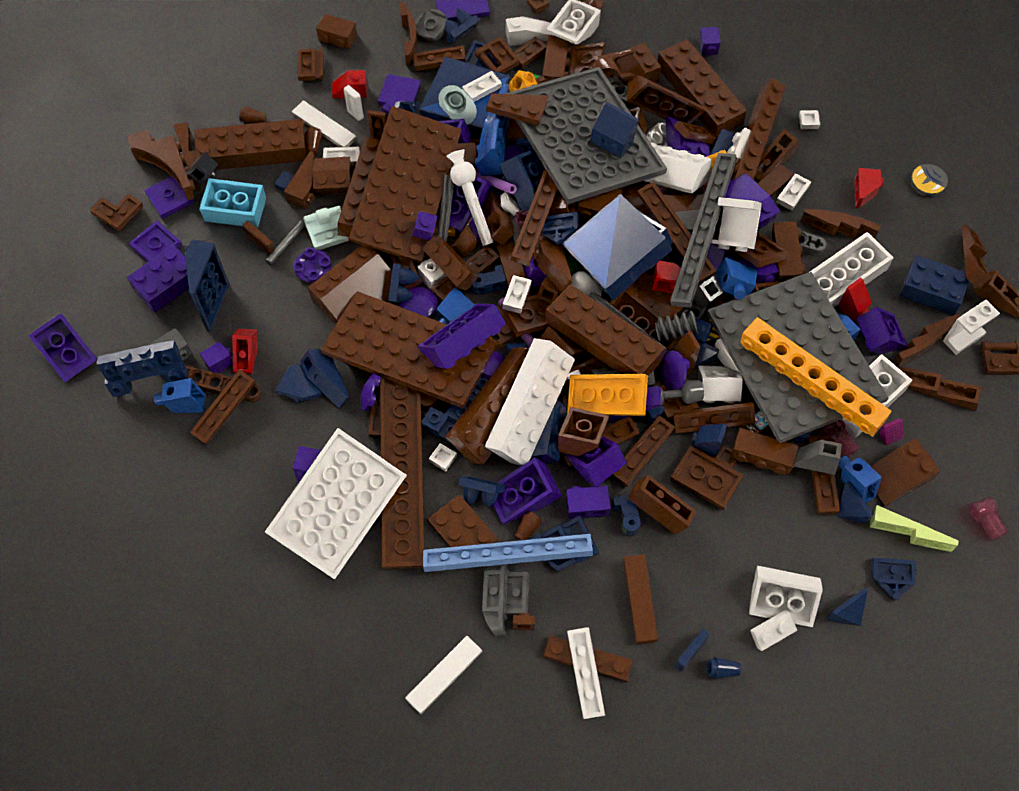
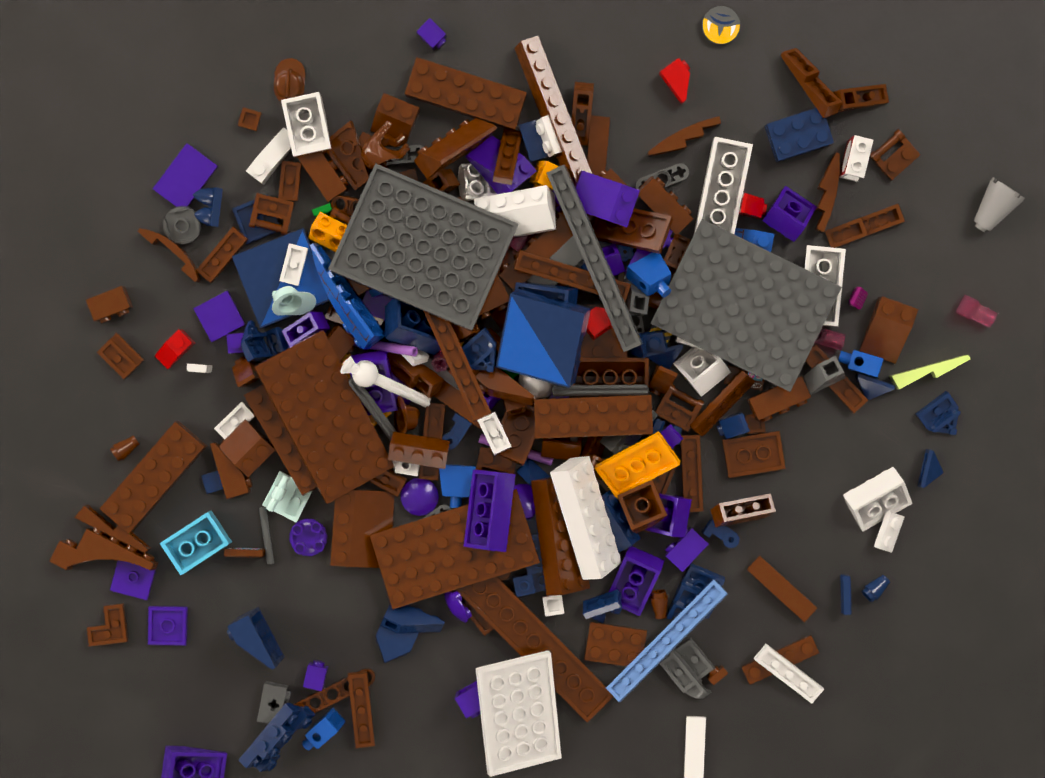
camera: 40 degrees left, 25 degrees up
(161, 279) = (208, 651): dark purple brick -> none
(202, 168) = (144, 538): black brick -> none
(244, 350) = (329, 651): red slope -> none
(313, 138) = (197, 427): reddish brown cone -> none
(328, 127) = (189, 403): white tile -> none
(400, 276) = (390, 492): dark blue tile -> none
(424, 225) = (376, 443): dark purple brick -> none
(518, 106) = (354, 273): reddish brown wing -> none
(614, 130) = (454, 236): dark blue slope -> none
(673, 370) = (666, 396): dark purple dish -> none
(675, 326) = (642, 365): dark grey piece -> none
(691, 392) = (689, 400): dark grey piece -> none
(738, 224) = (618, 233): white panel -> none
(793, 192) = (622, 135): white plate -> none
(809, 119) = (579, 47): white plate -> none
(825, 377) = (847, 317): light orange brick -> none

